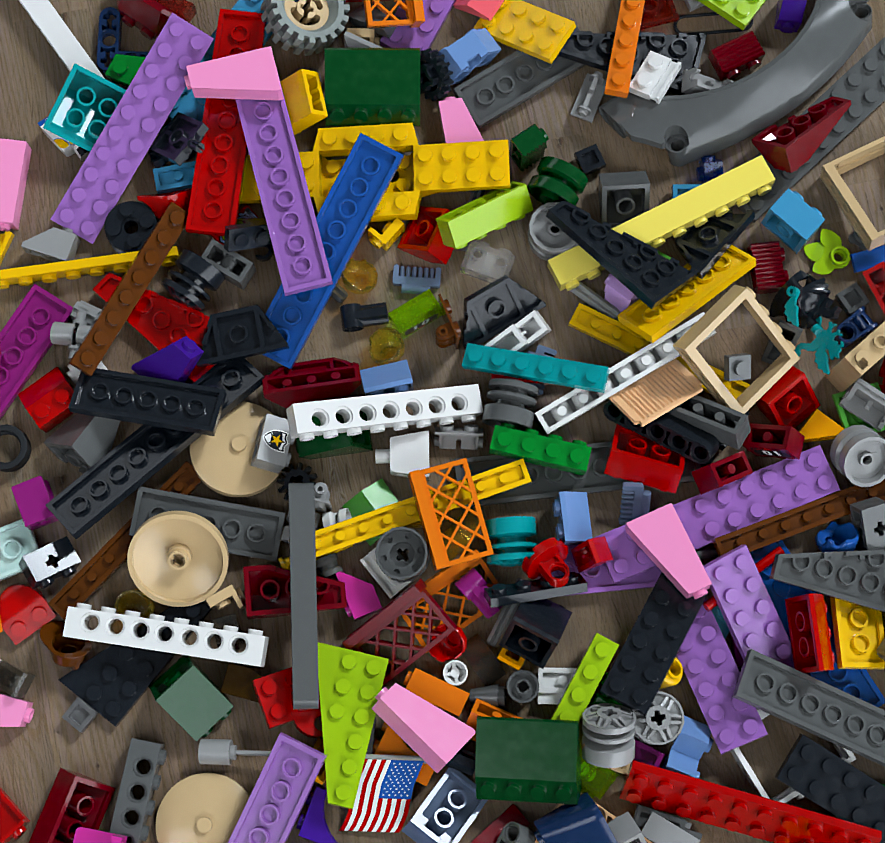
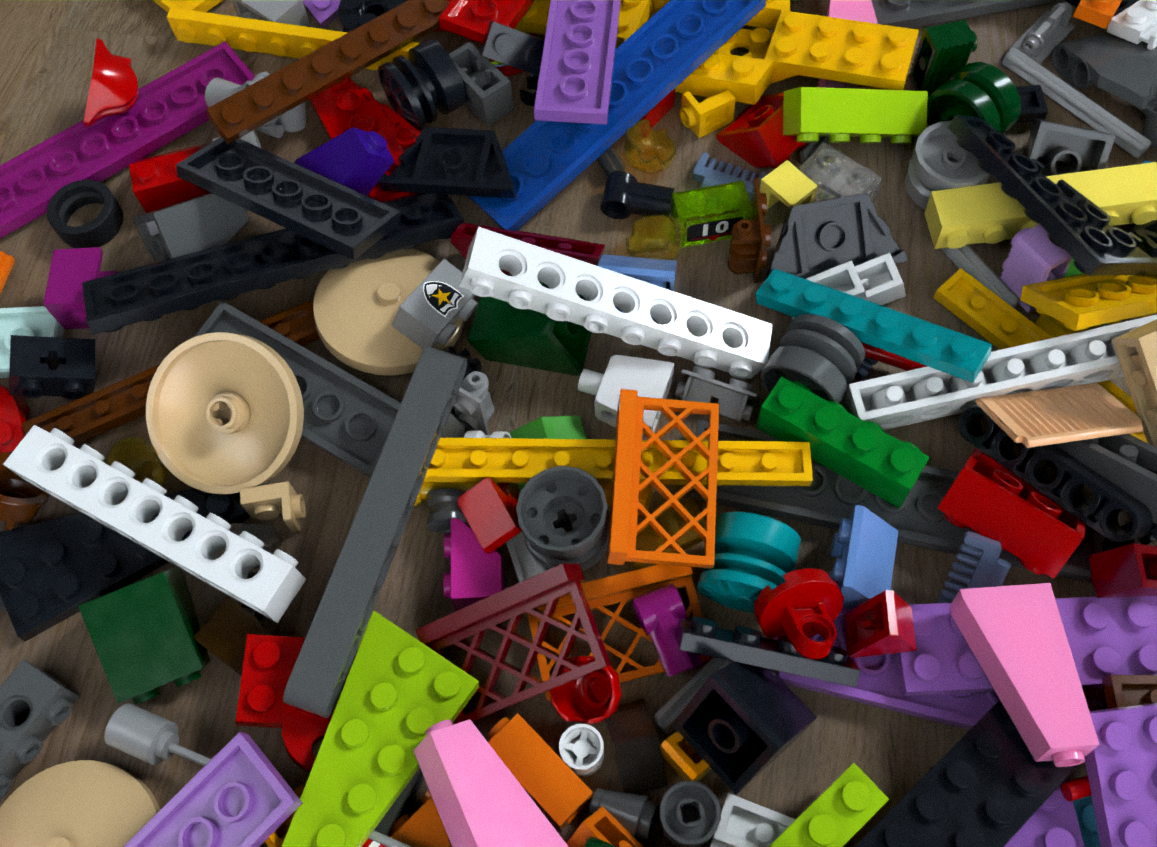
camera: 25 degrees right, 15 degrees down
(269, 592) = (328, 510): dark red wedge -> none
(360, 563) = (491, 512): none -> red slope
(457, 279) = (788, 186): none -> light yellow panel
(621, 145) = (1076, 102): none -> light grey axle

